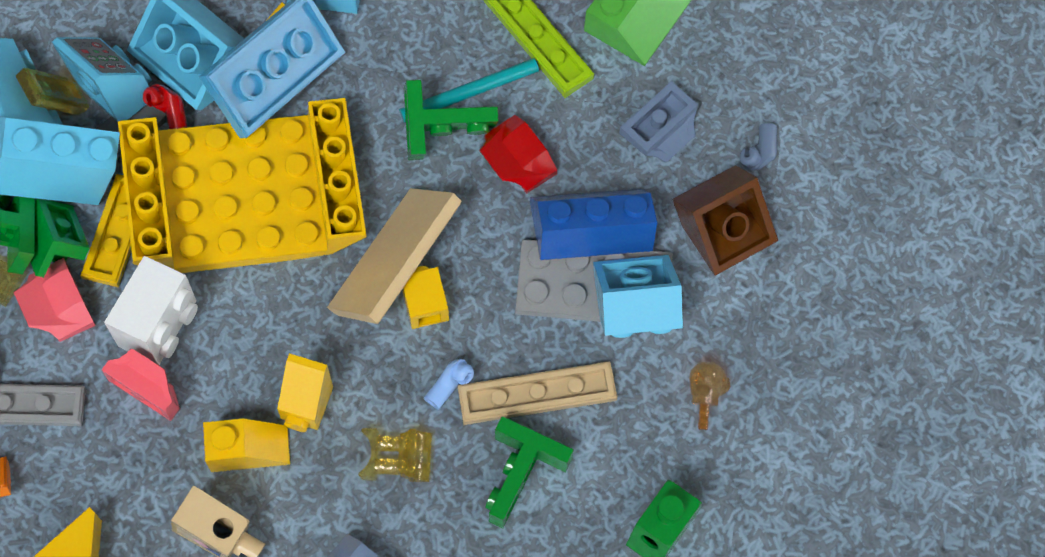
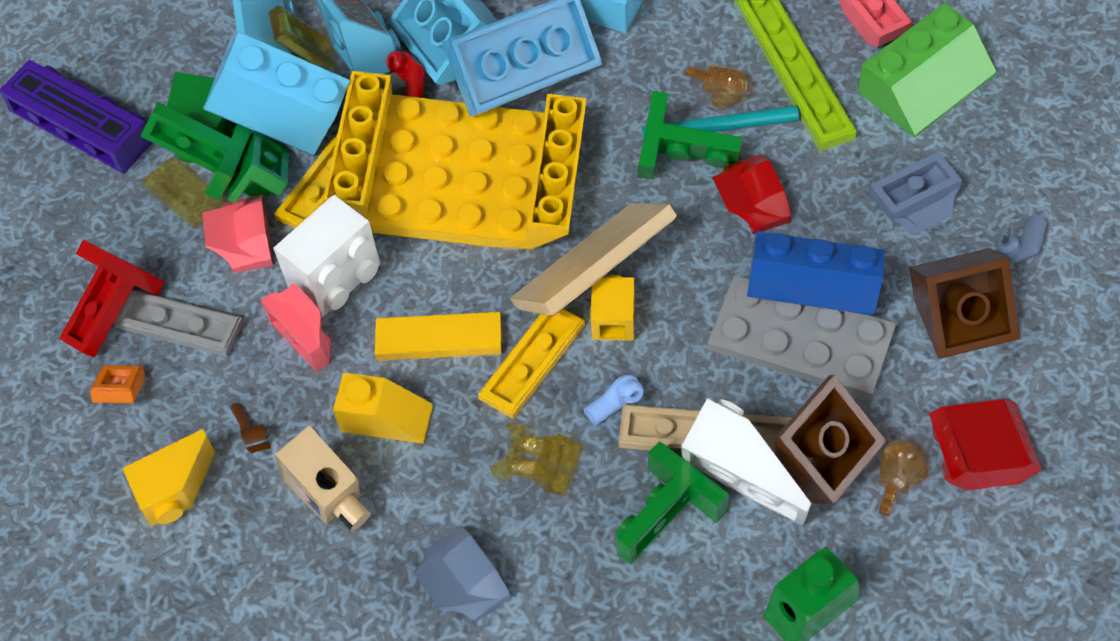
camera: 25 degrees right, 10 degrees down
(134, 498) = (249, 433): none -> reddish brown hand
(267, 360) = (438, 336): none -> yellow tile
(304, 393) = (457, 369): yellow slope -> none
(363, 366) = (530, 361): none -> yellow tile
(462, 49) = (724, 84): none -> clear orange piece
(574, 415) = (735, 455): none -> white slope
(638, 295) = (845, 347): medium azure slope -> none
(645, 386) = (827, 443): none -> reddish brown slope
(770, 346) = (984, 444): none -> red slope

